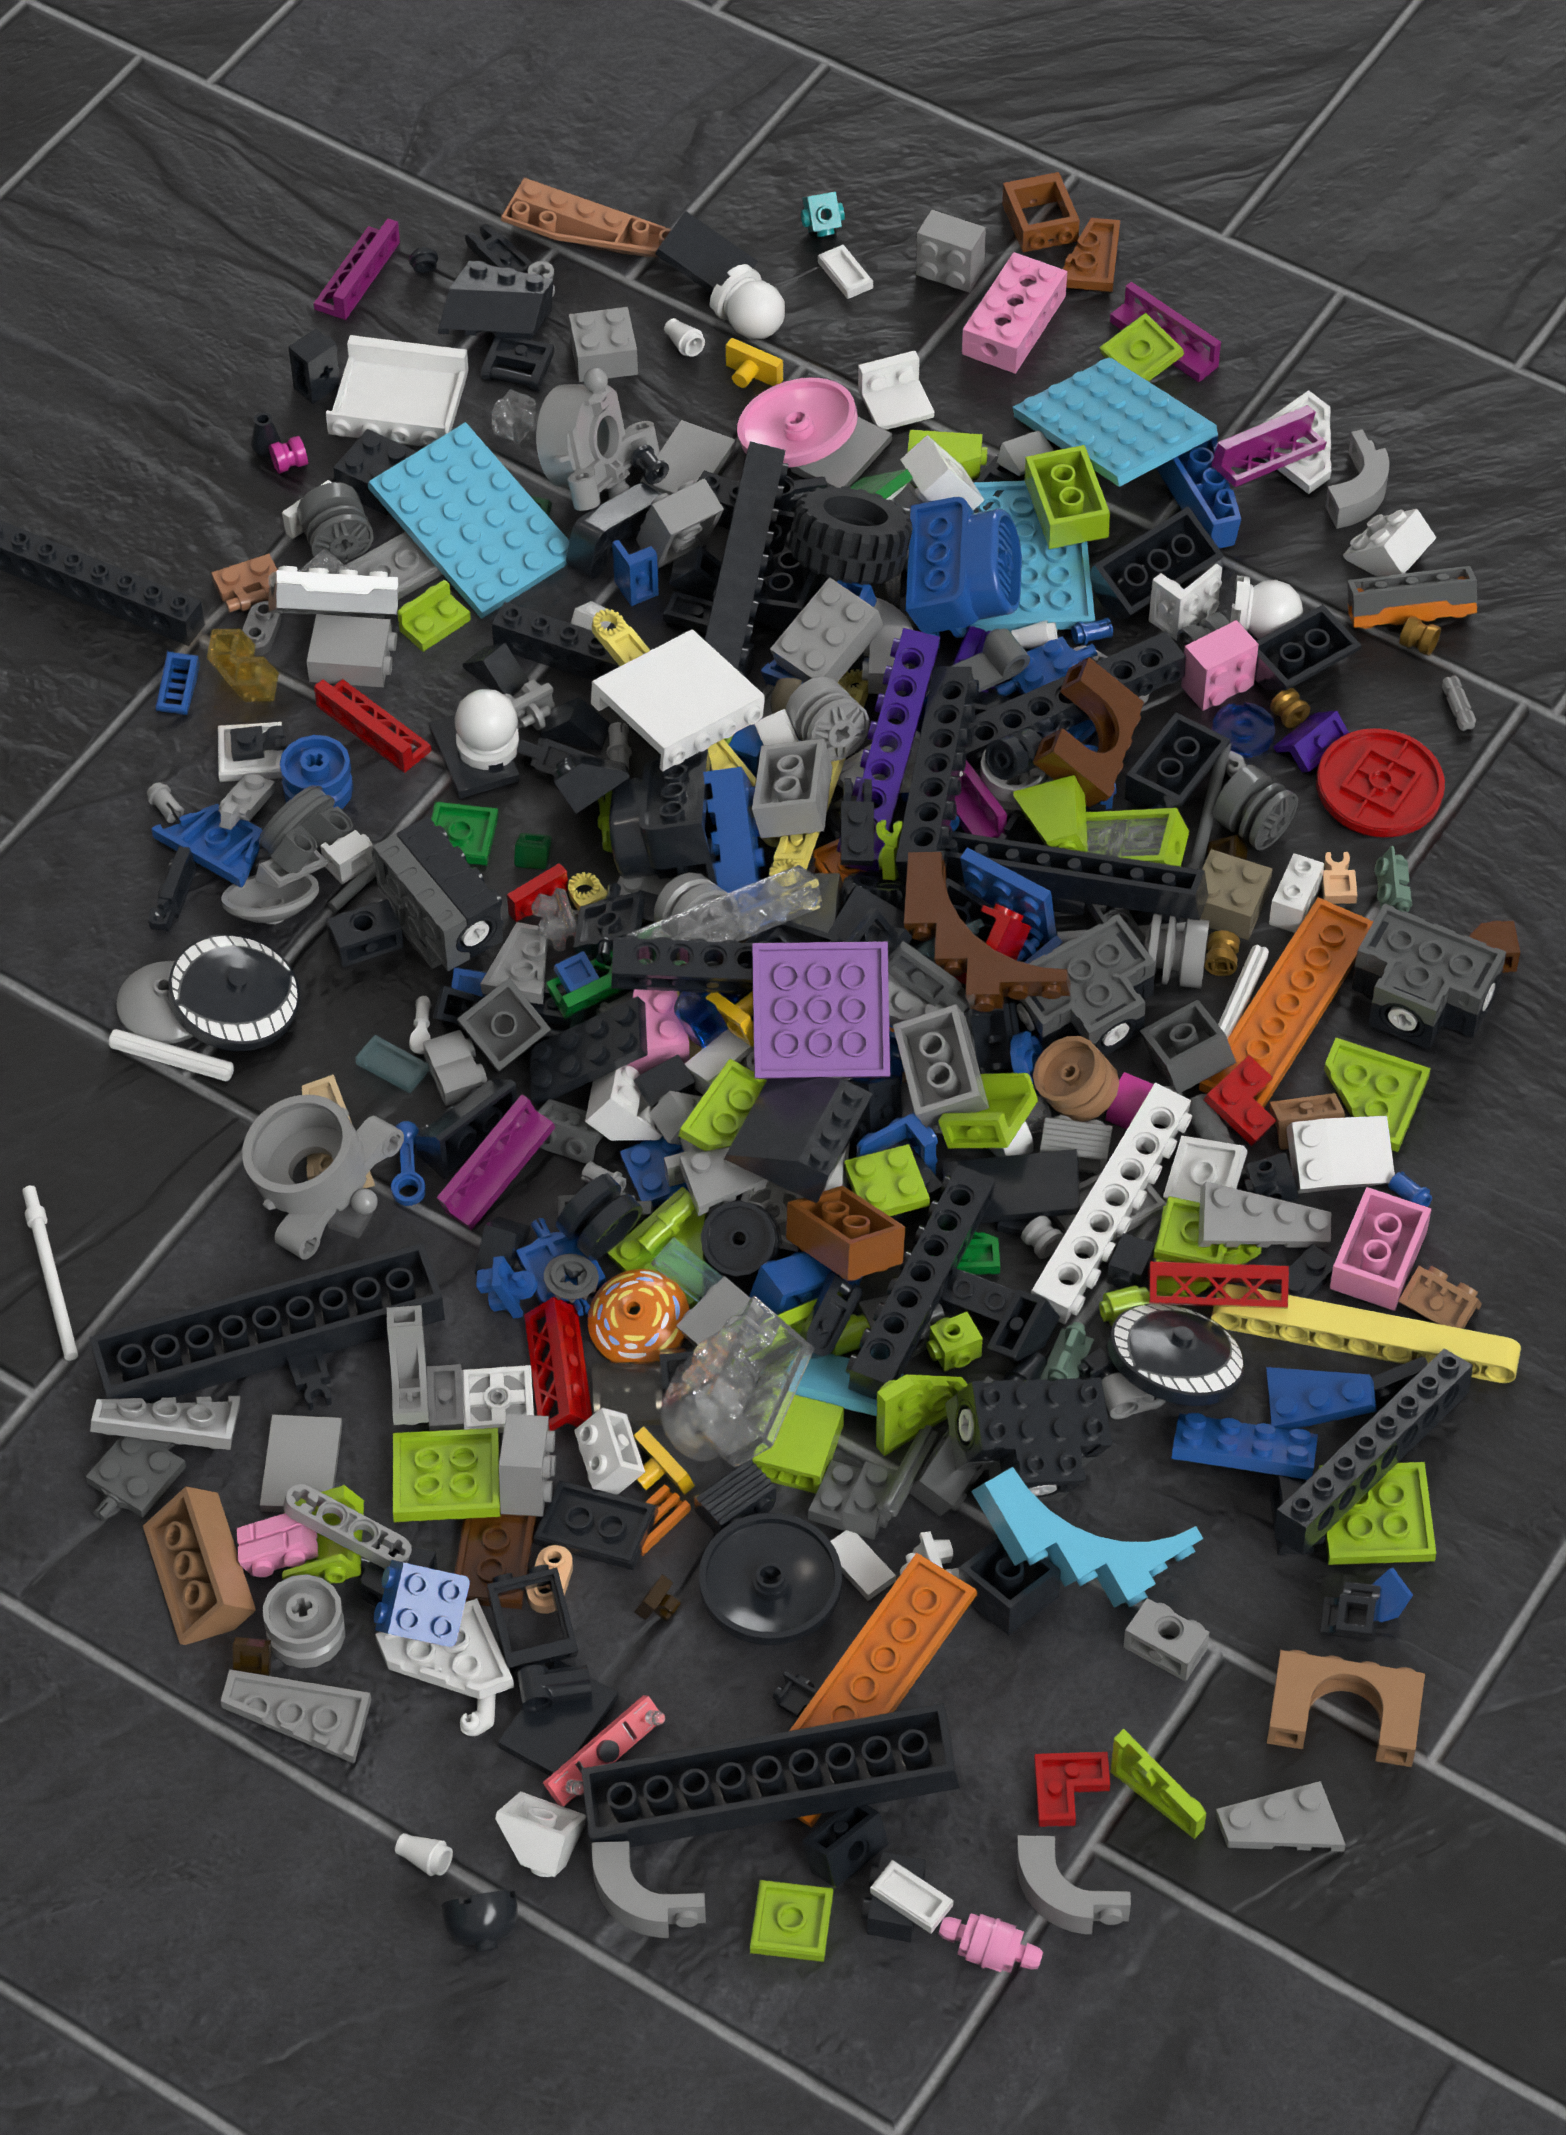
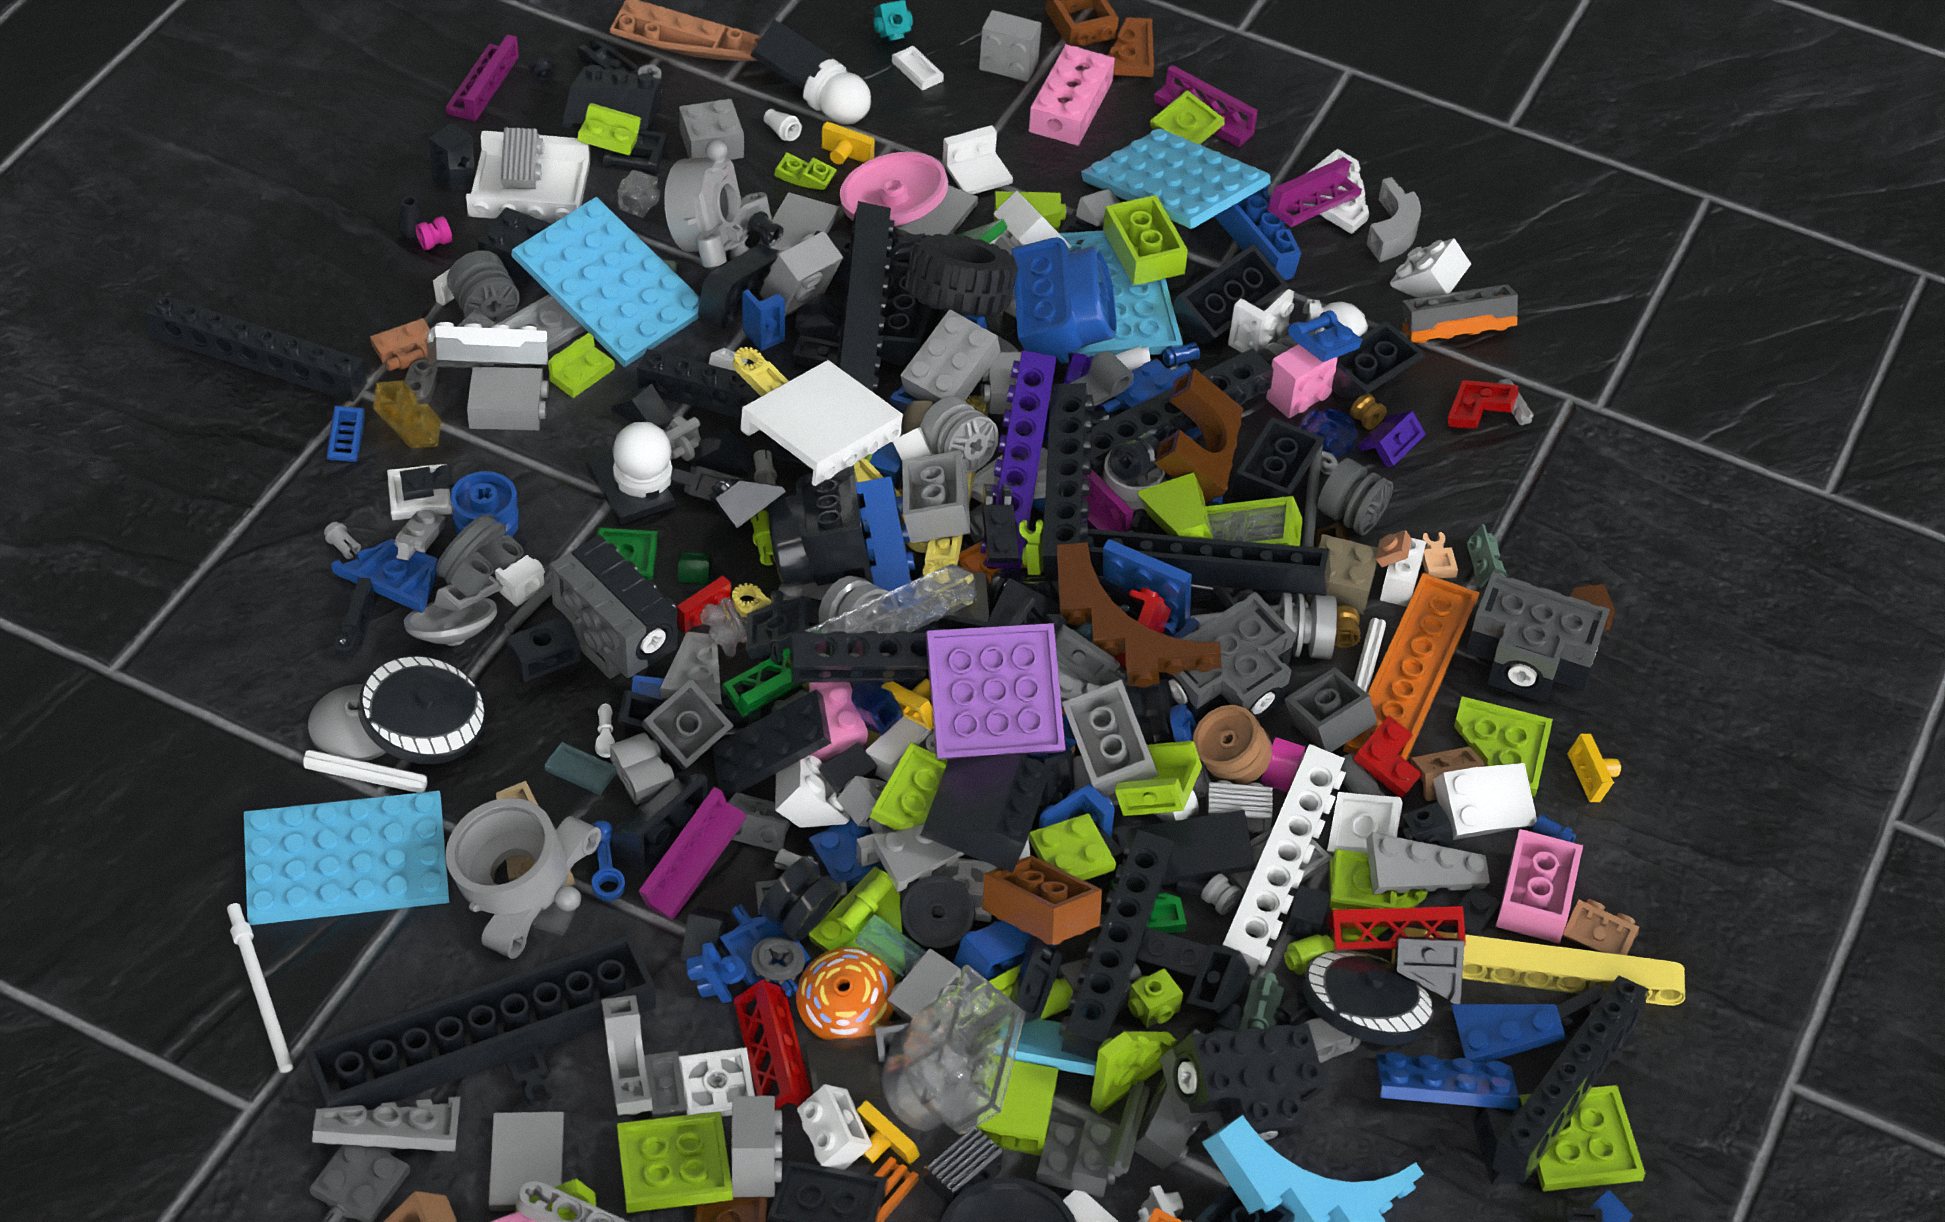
camera: 10 degrees left, 5 degrees down
(144, 1144) = (345, 857): none -> medium azure plate
(370, 729) = (531, 462): red fence -> none
(389, 370) = (521, 158): none -> light grey brick
(489, 340) = (609, 129): none -> lime bracket
(575, 972) = (751, 672): blue plate -> none
(703, 398) = (809, 175): none -> lime slope
(1248, 631) = (1326, 344): none -> blue plate
(1248, 1323) = (1432, 963): none -> wing
(1284, 870) = (1393, 548): none -> nougat plate
(1380, 782) = (1459, 472): red plate -> none
(1414, 697) = (1476, 397): none -> red plate
(1420, 635) = (1471, 346): pearl gold wheel -> none
(1464, 1125) = (1592, 769): none -> yellow tile

